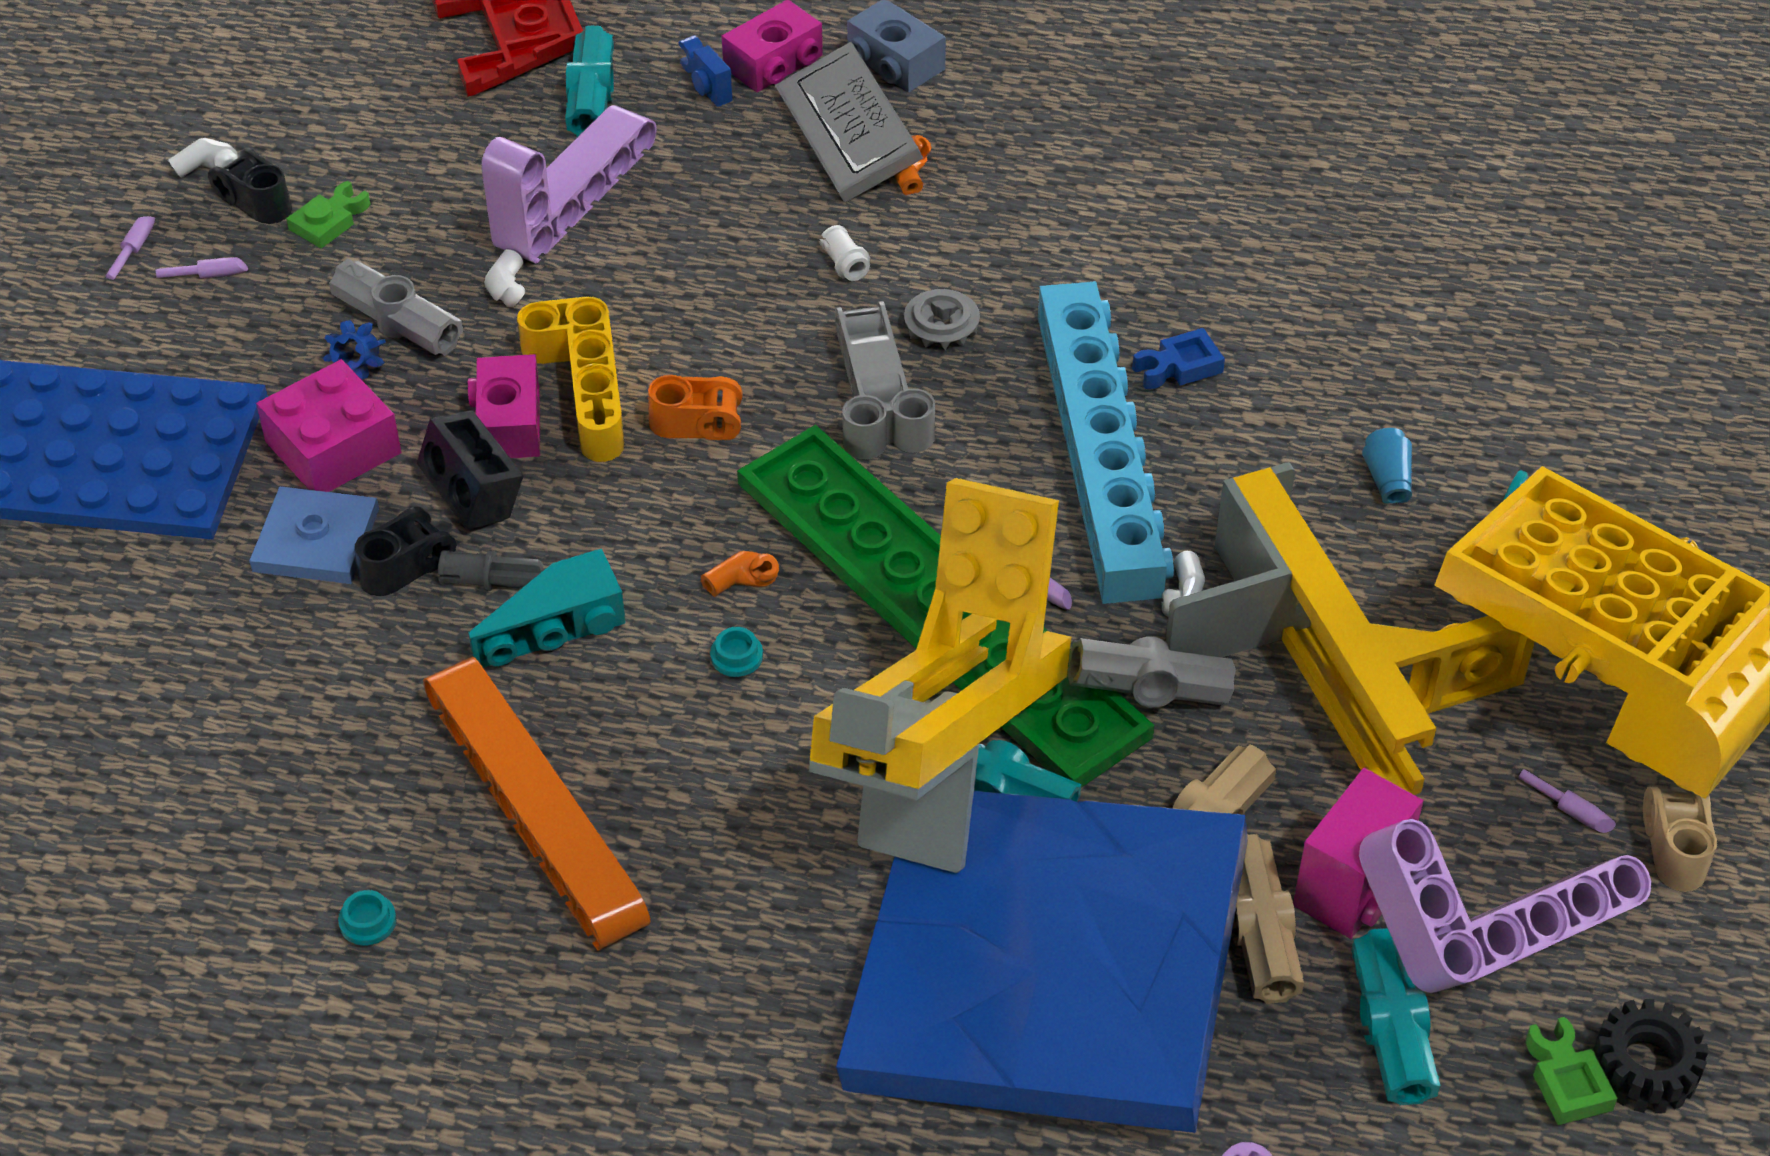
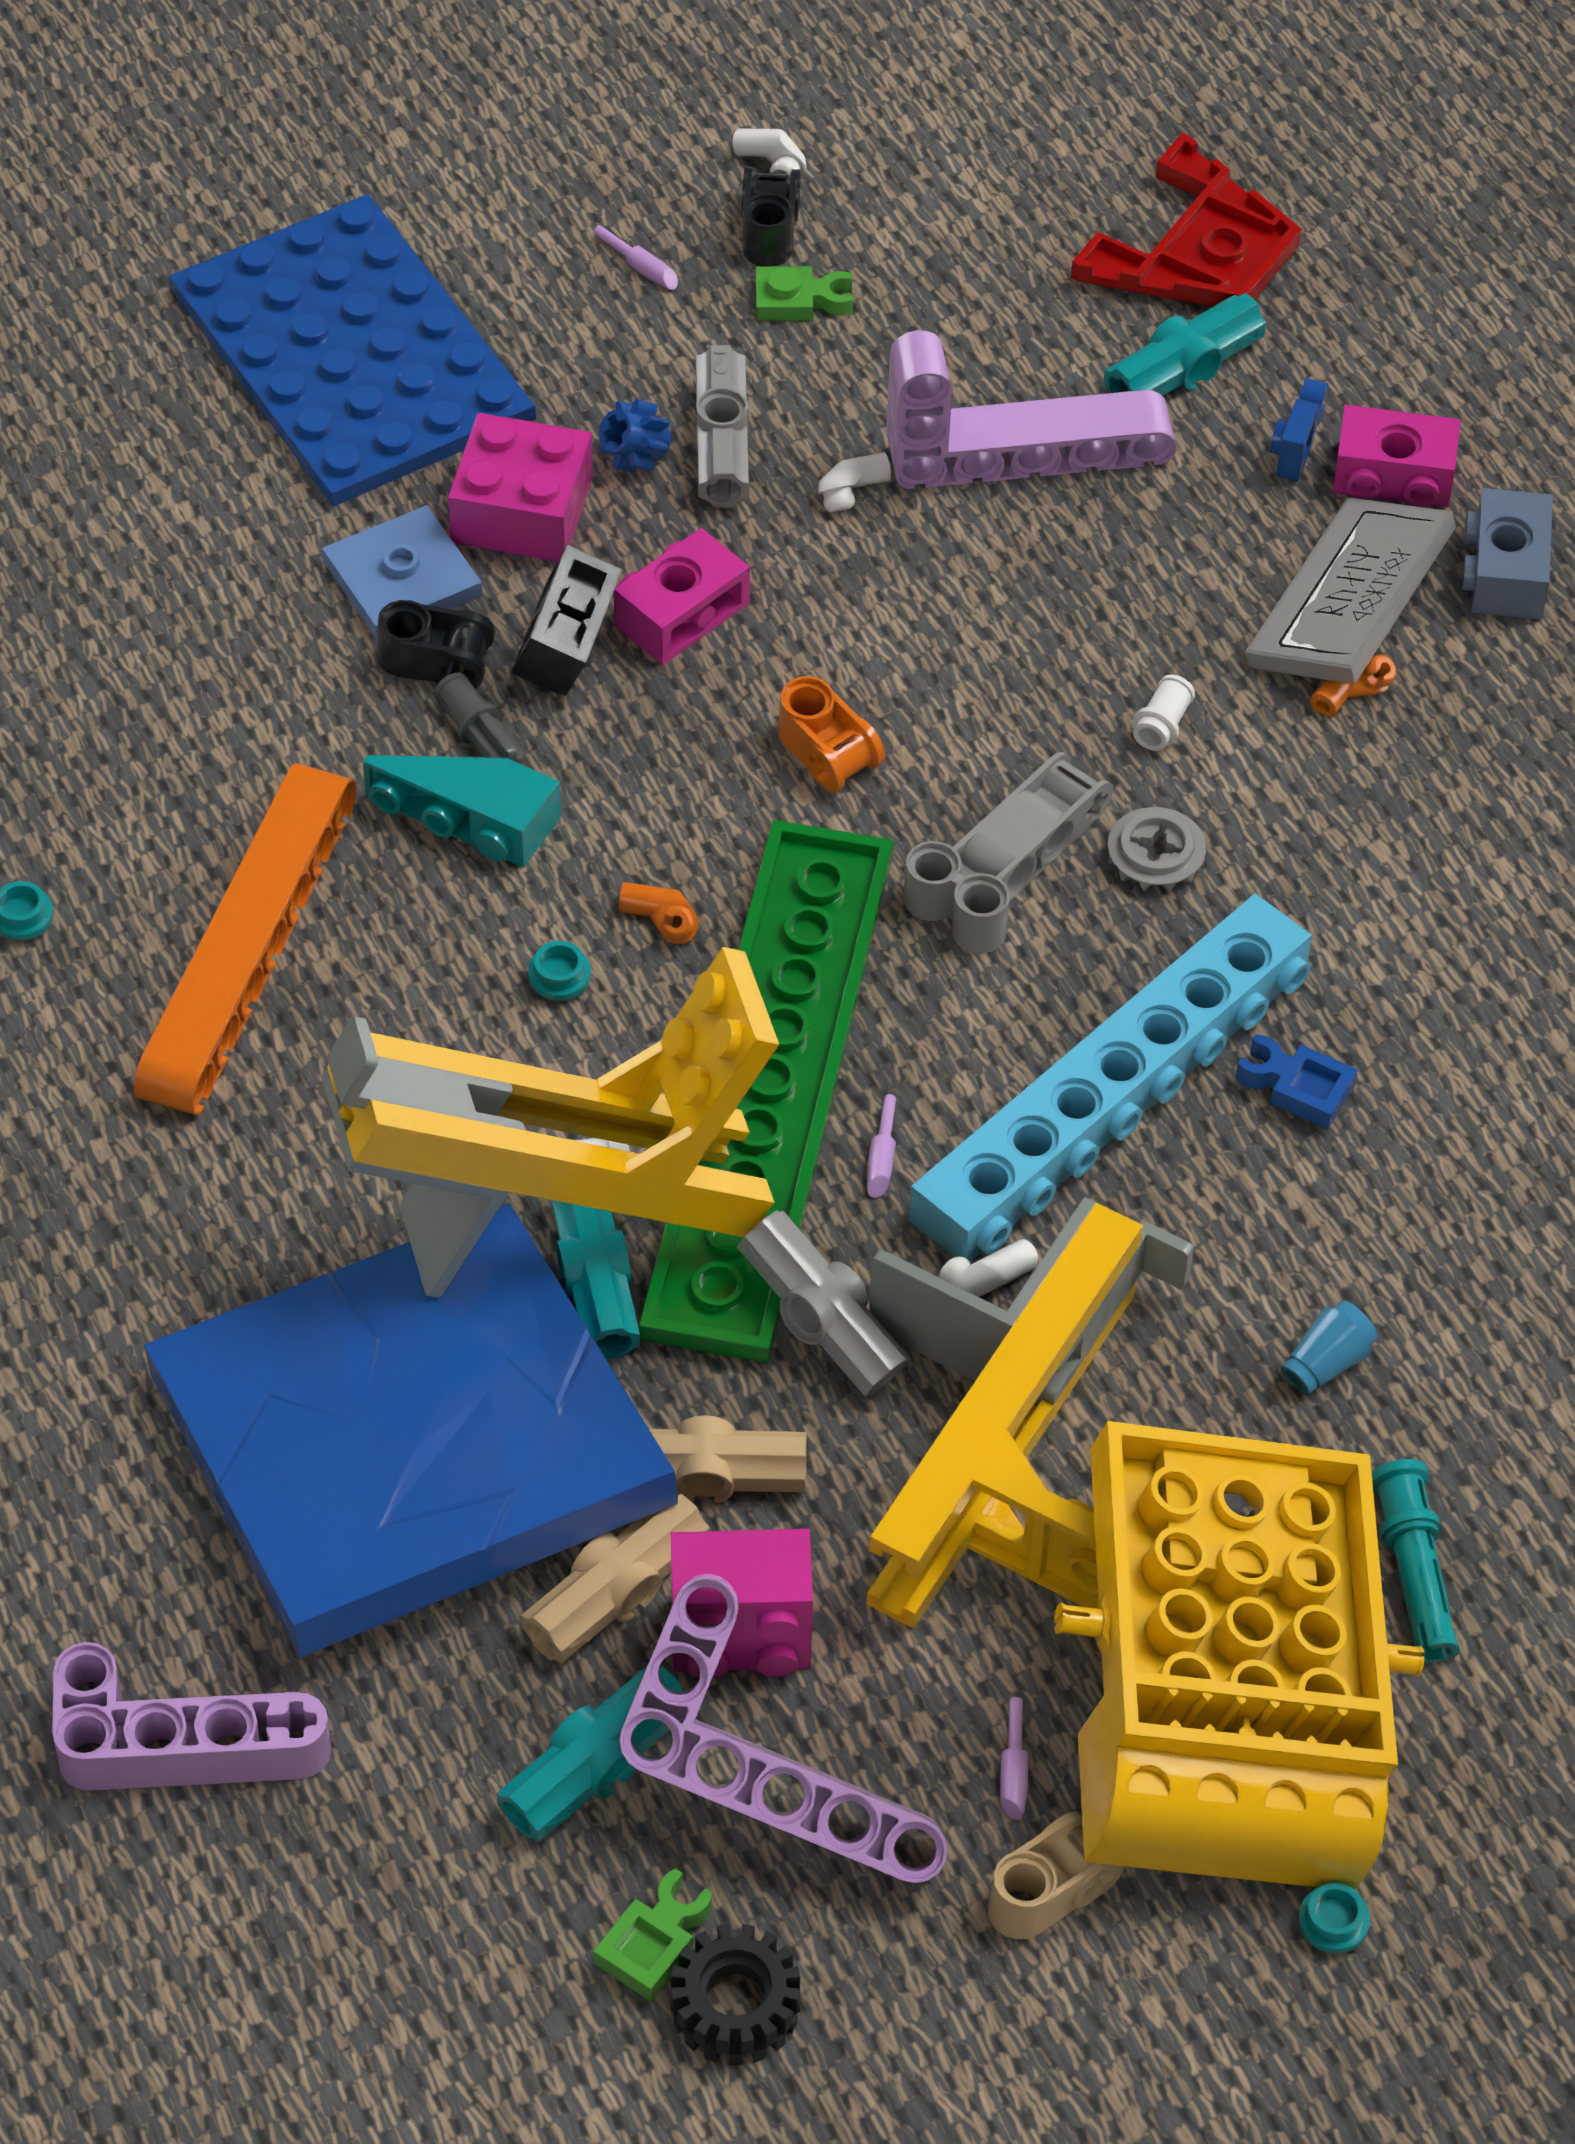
camera: 50 degrees right, 5 degrees up
(131, 243) = (616, 185): lavender piece -> none
(580, 333) = (820, 598): yellow beam -> none

